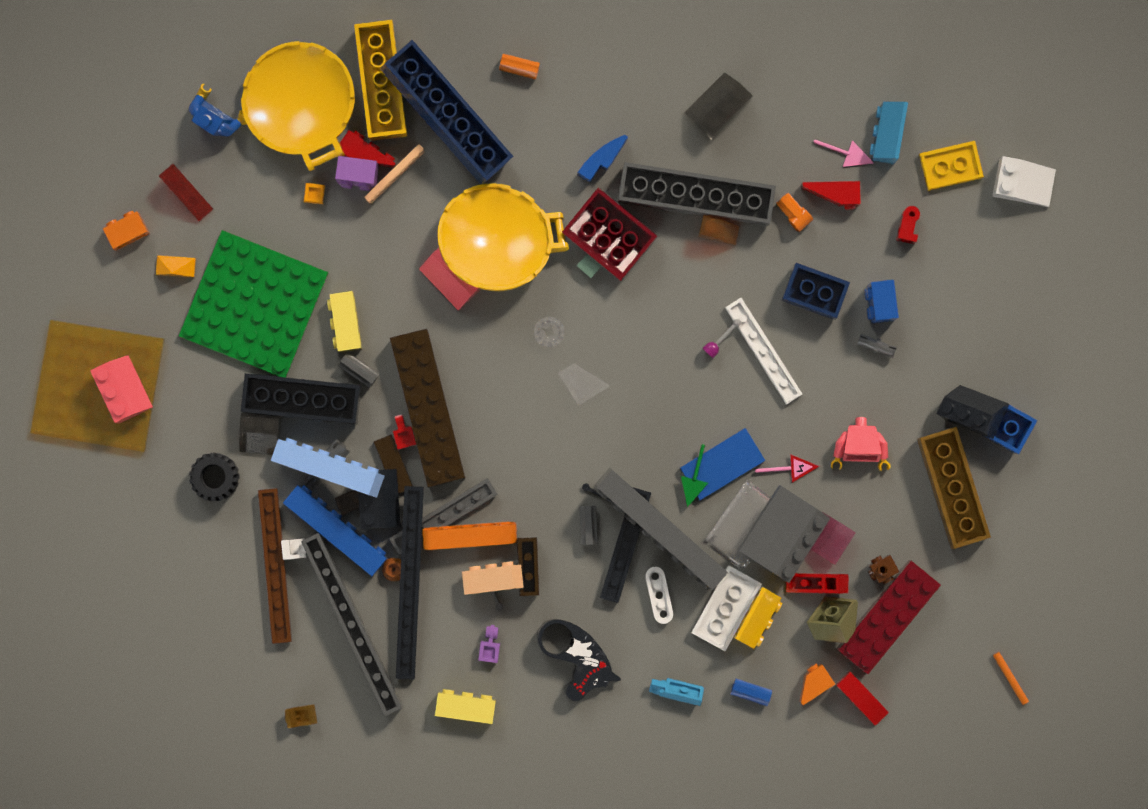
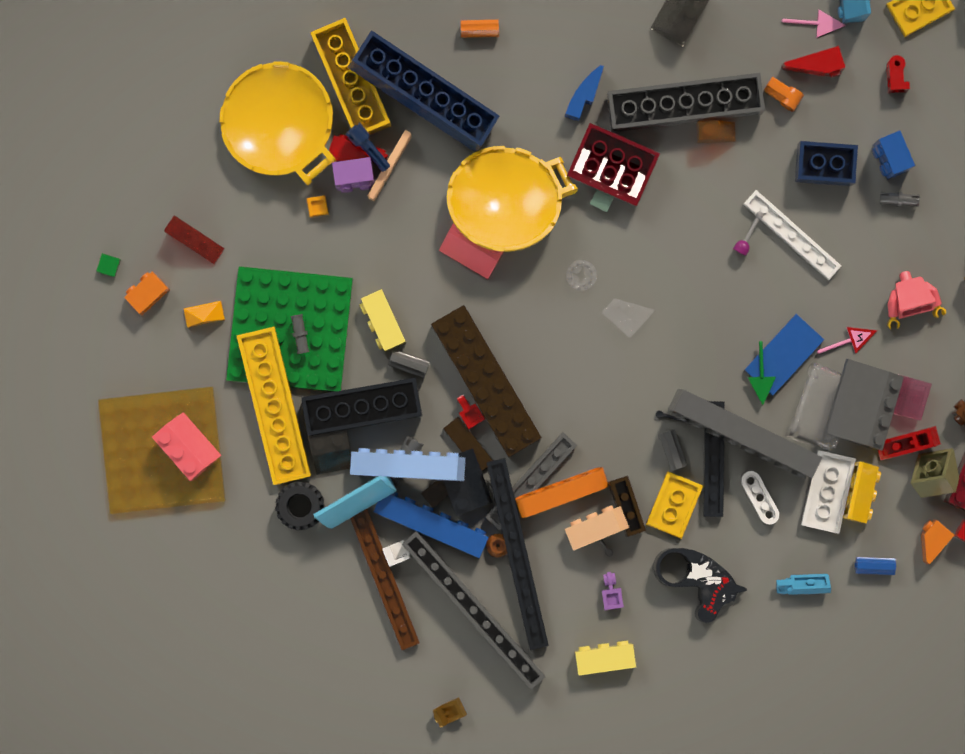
camera: 10 degrees left, 0 degrees up
(97, 193) = (108, 265): none -> green tile
(211, 118) = (198, 161): blue torso -> none
(216, 373) = (274, 405): none -> yellow plate
(261, 311) = (300, 334): none -> dark grey pin
(268, 488) = (356, 501): none -> medium azure slope
(372, 139) = (360, 137): none -> dark blue piece
(575, 578) = (674, 505): none -> yellow tile

